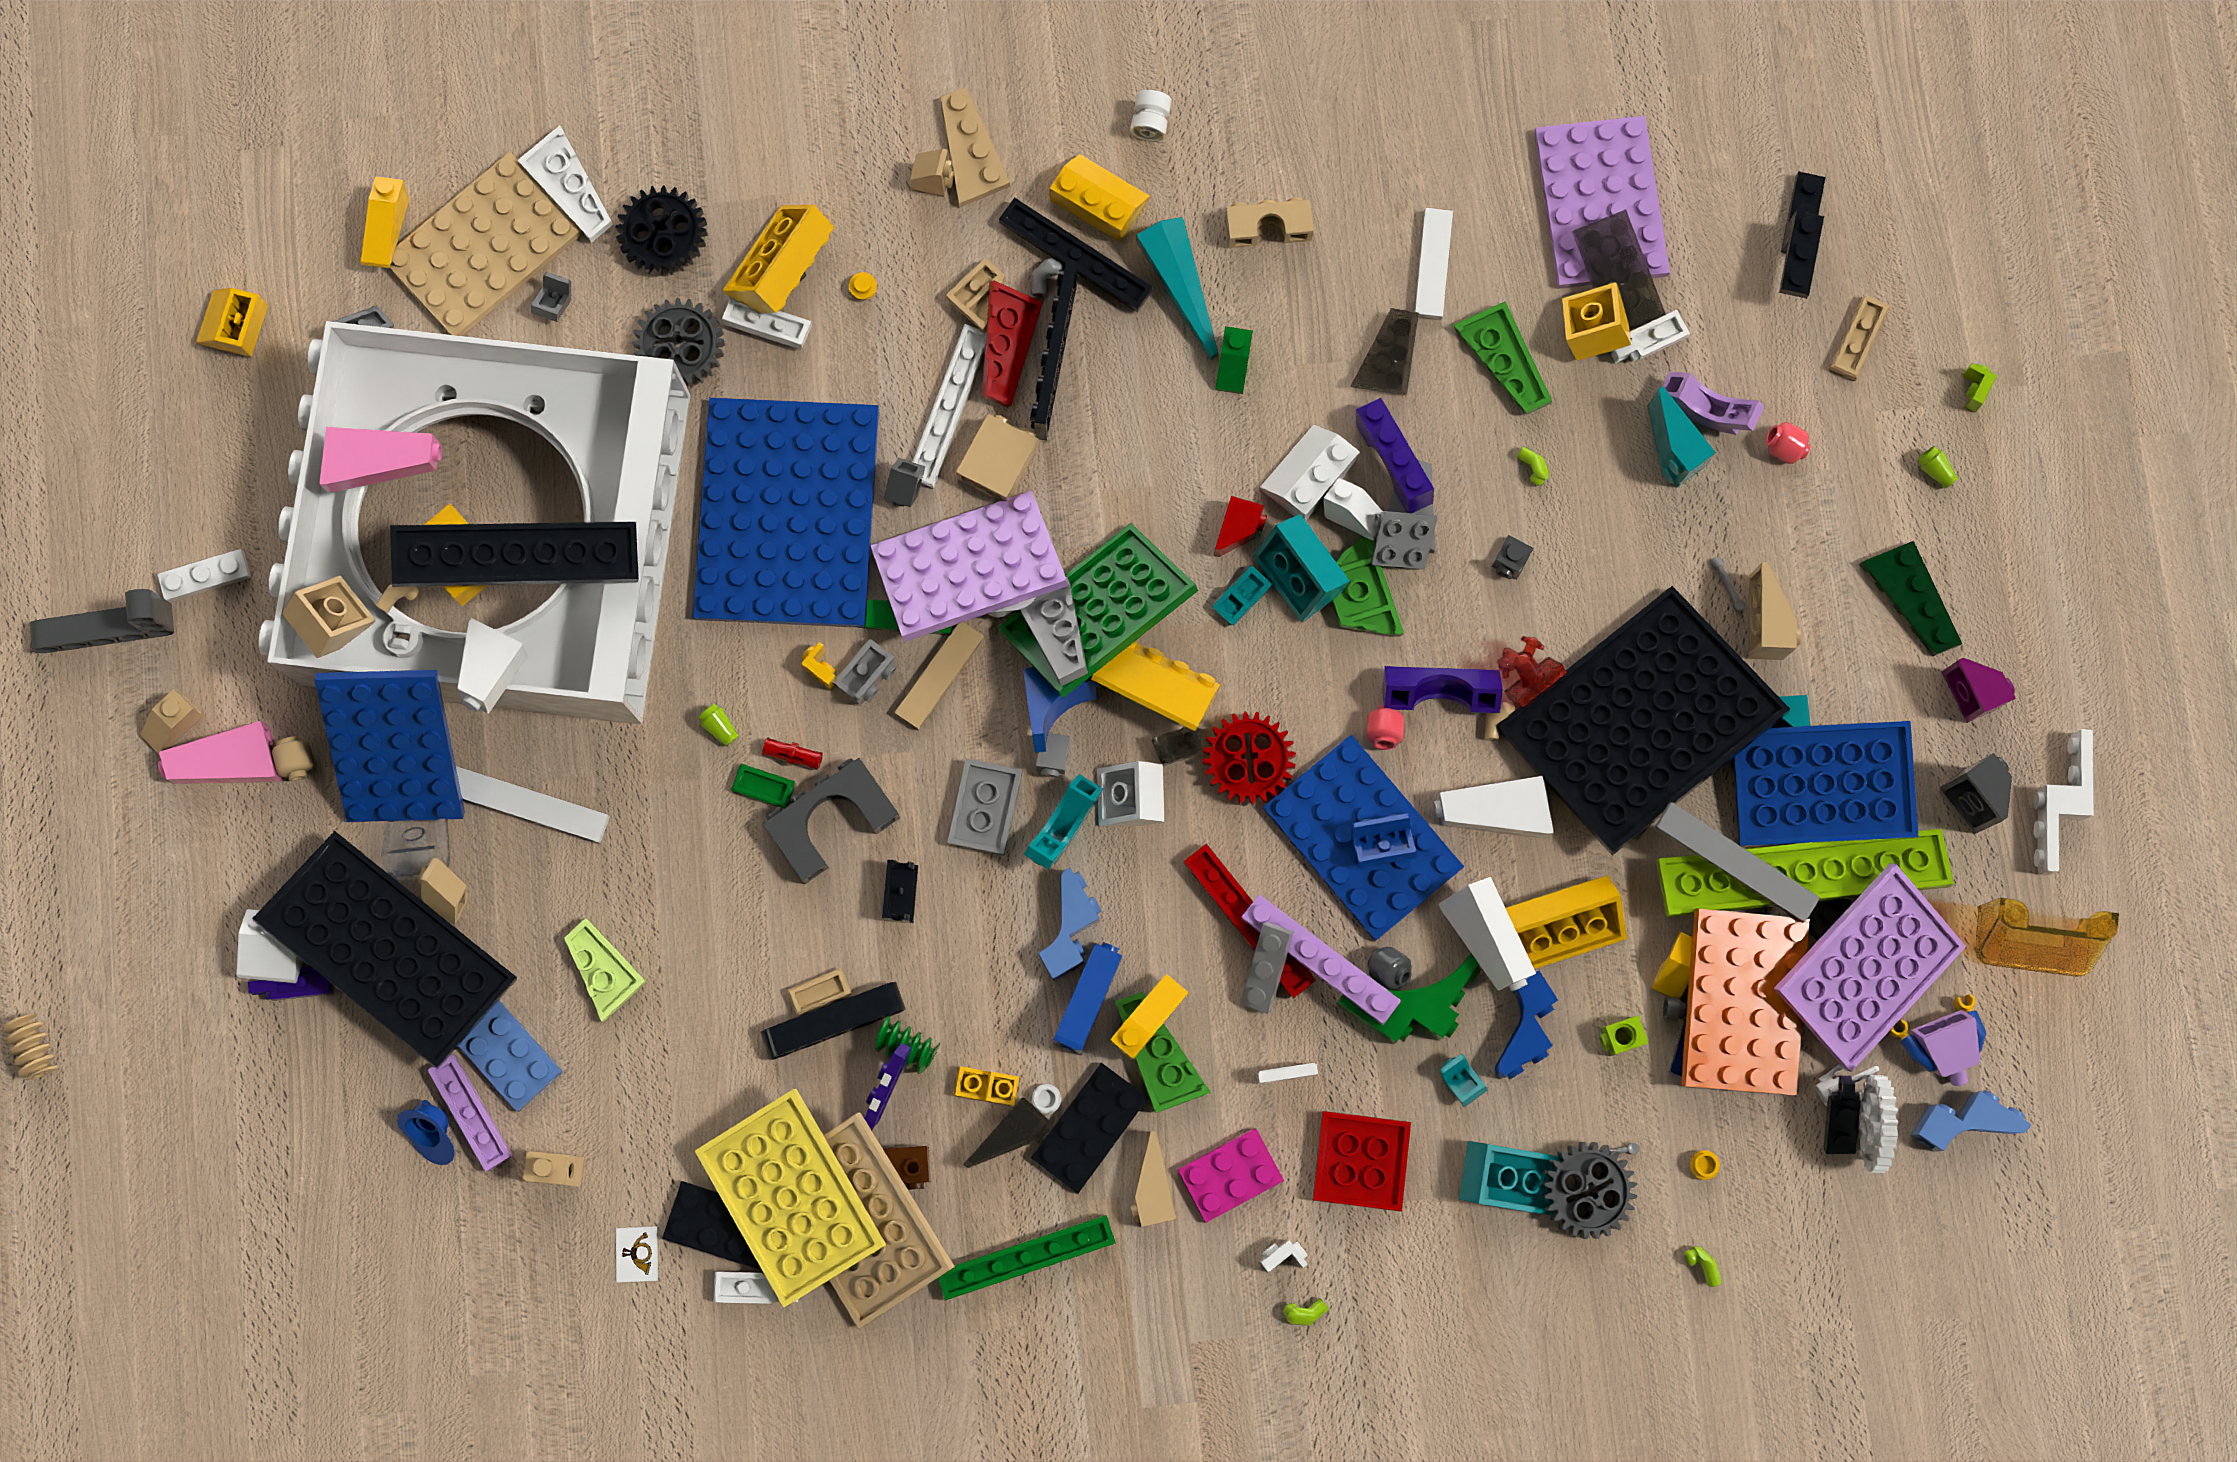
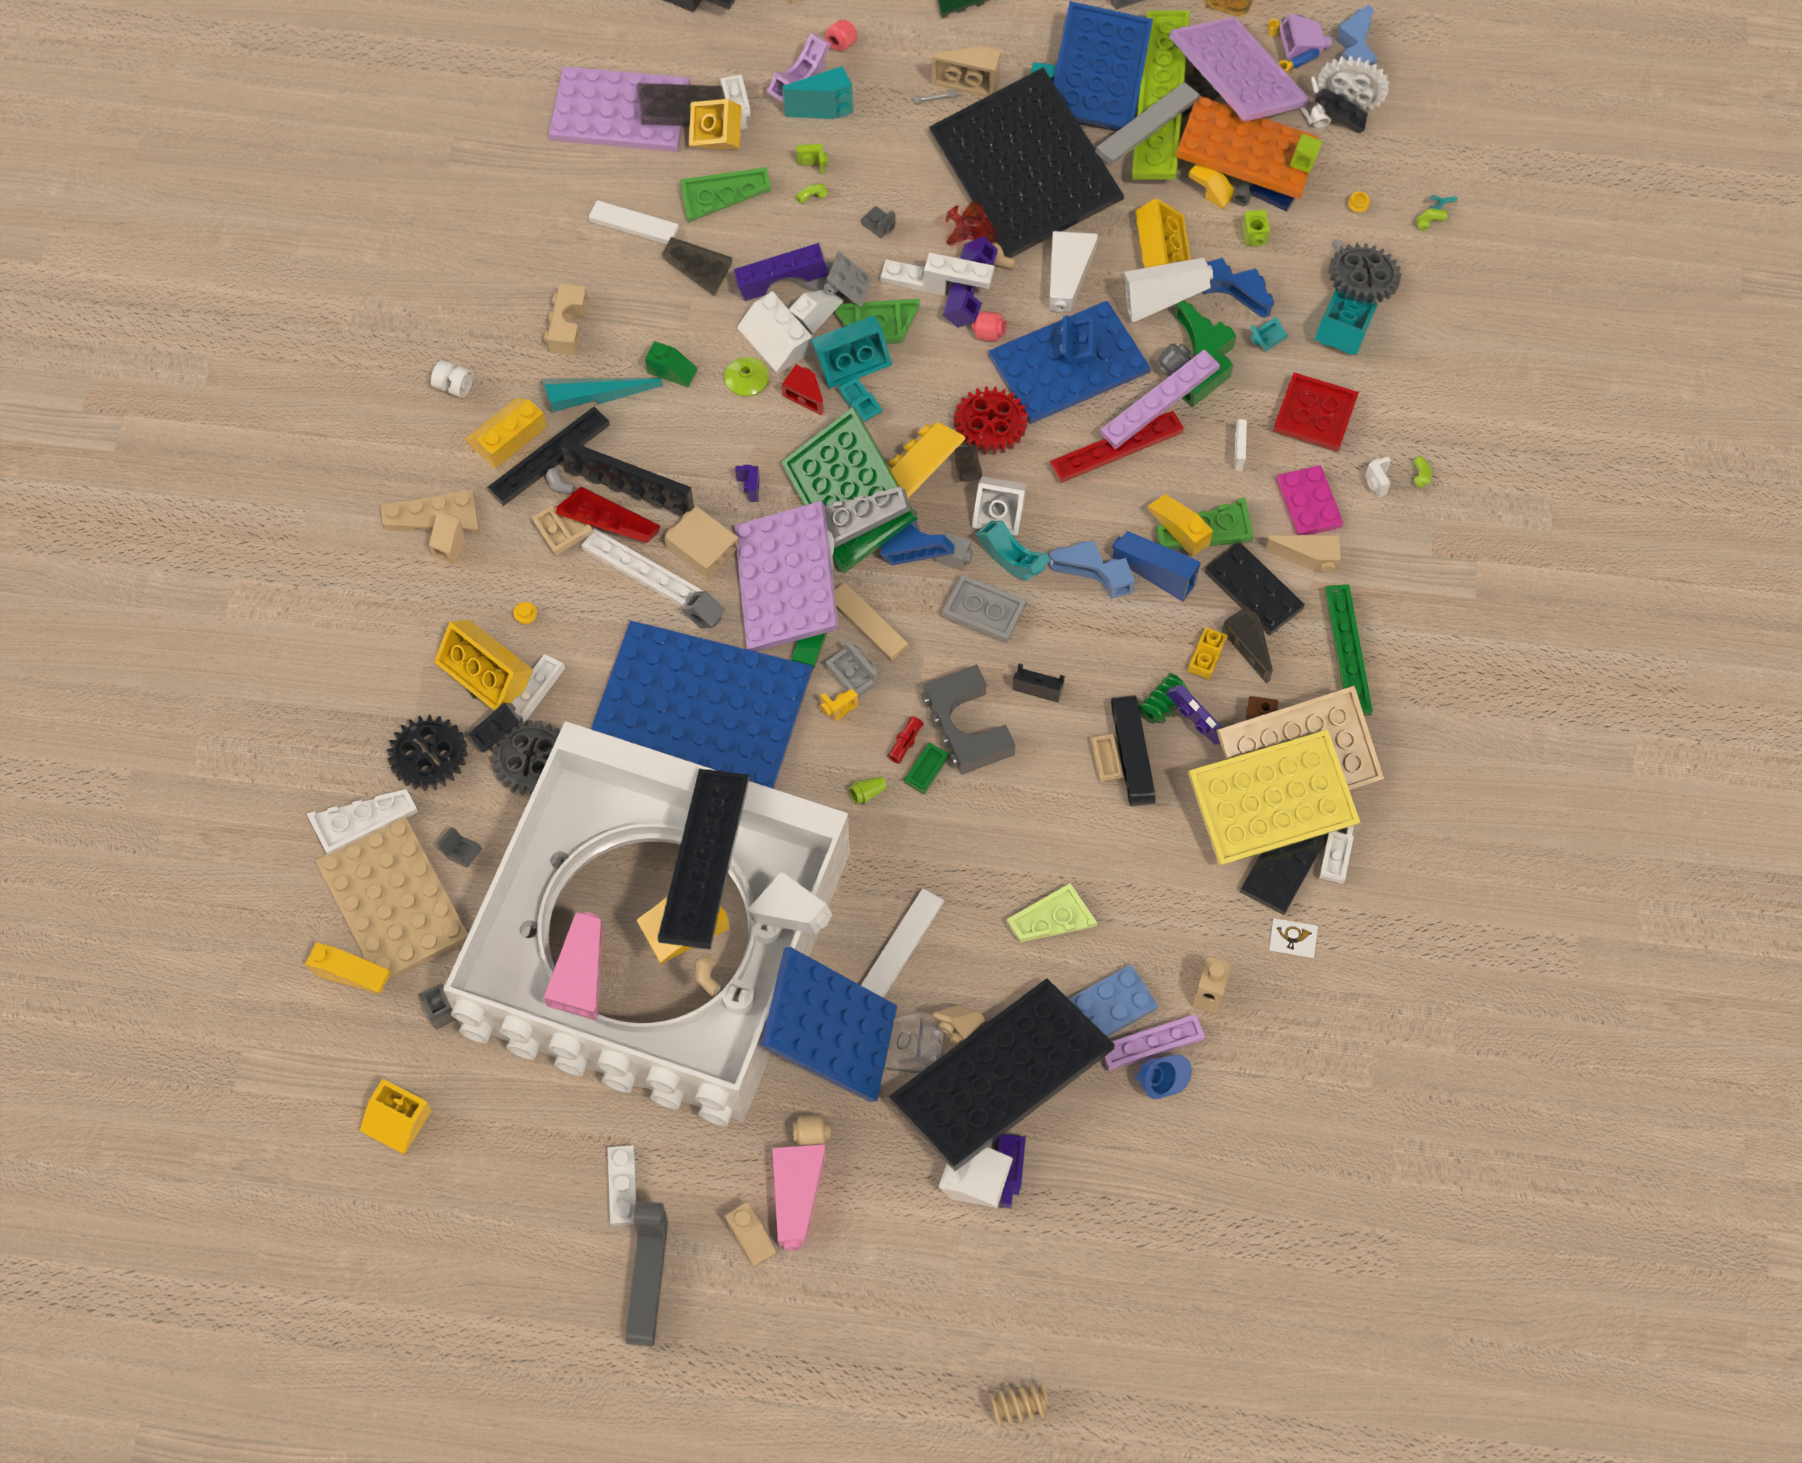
camera: 75 degrees left, 15 degrees down
(327, 616) = (712, 1033): tan slope -> none
(700, 294) = (495, 726): none -> black hinge
(1046, 1098) = (1224, 611): white tile -> none
(1091, 497) = (751, 478): none -> dark purple bracket
(1243, 466) = (746, 384): none -> lime dish
(1267, 967) = (1158, 436): light grey plate -> none
(1443, 647) = (937, 274): none -> white bracket
(1588, 449) = (812, 154): none -> lime bracket
(1732, 1269) = (1440, 201): none -> teal hand
(1745, 1079) = (1306, 153): none -> lime brick

